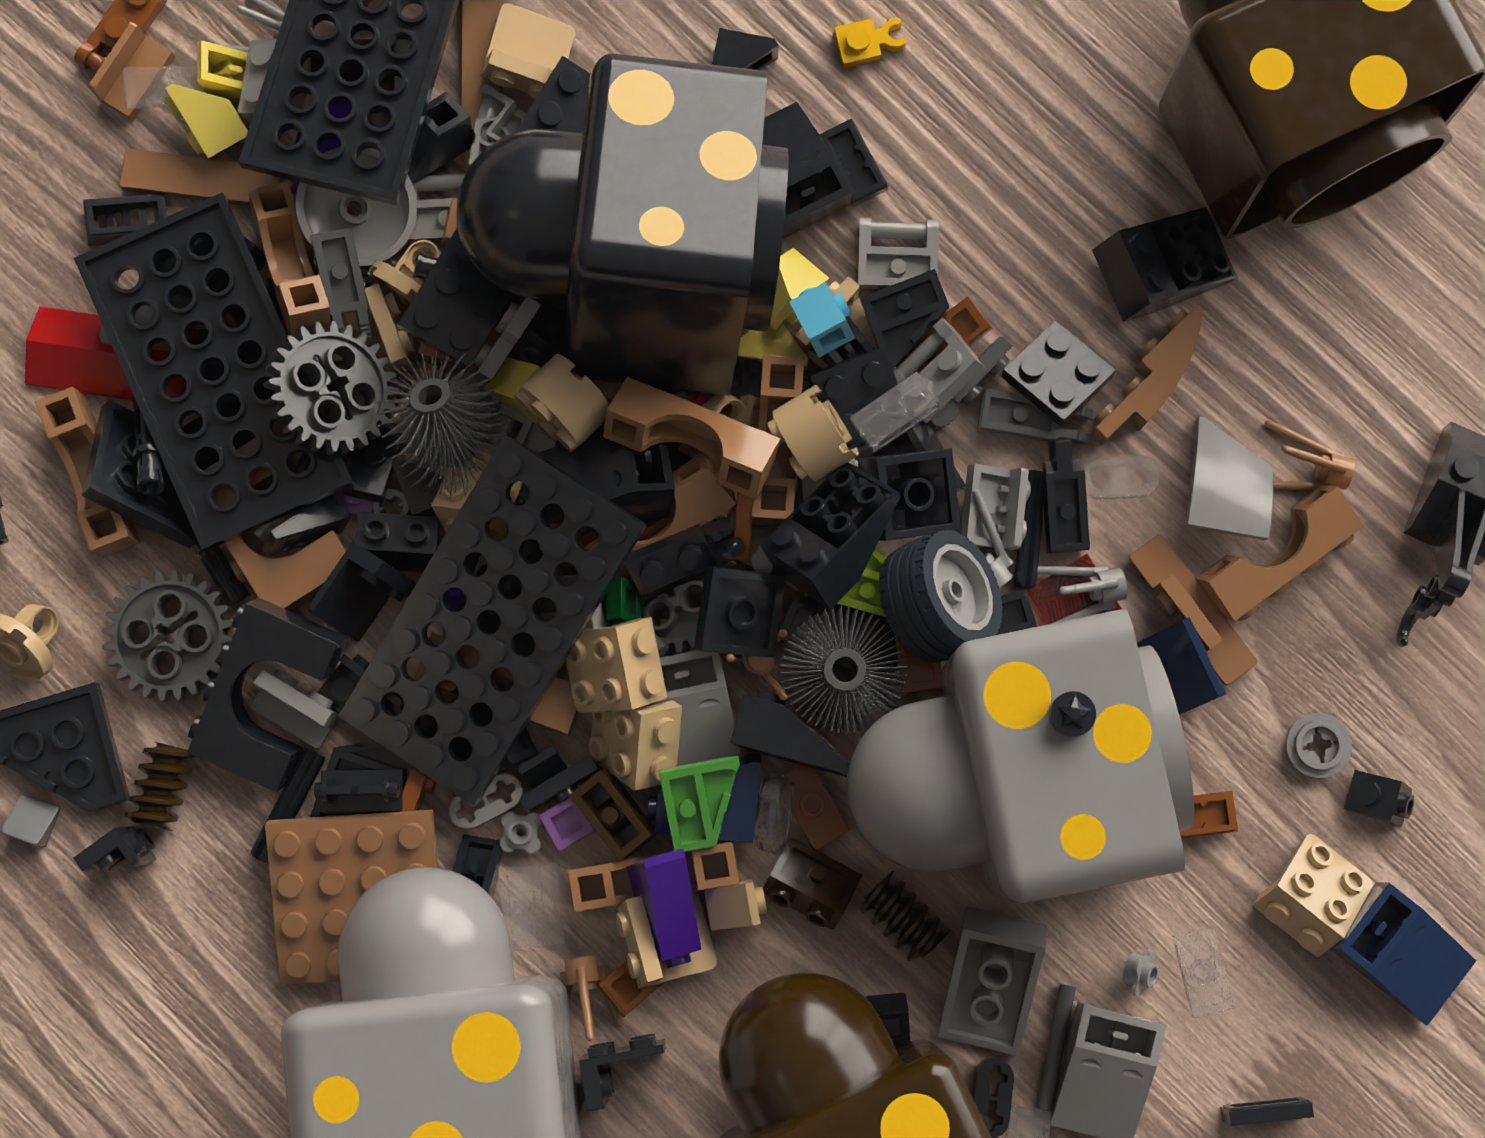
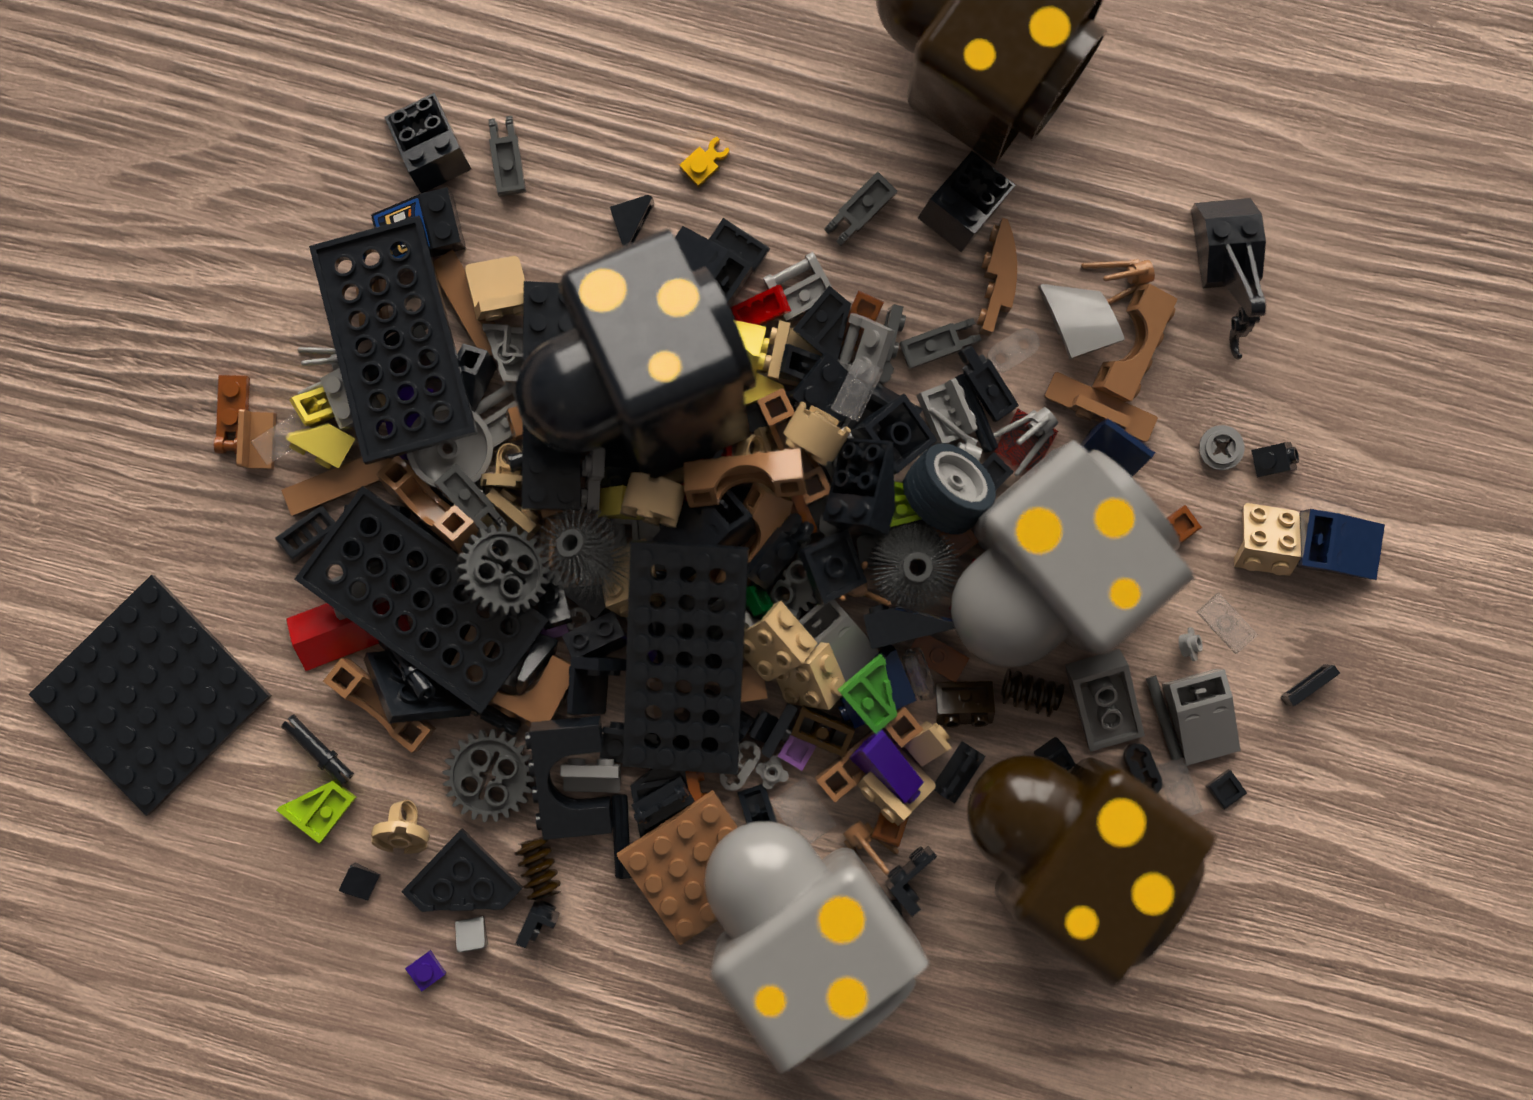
camera: 30 degrees left, 5 degrees up
(754, 966) = (958, 772): none -> black hinge
(823, 318) = (781, 357): medium azure brick -> none
(838, 251) = (762, 307): none -> red plate
(1030, 200) = (862, 206): none -> dark grey hinge
(1058, 373) = (940, 307): plate -> none
(1072, 714) = (1079, 523): black tile -> none

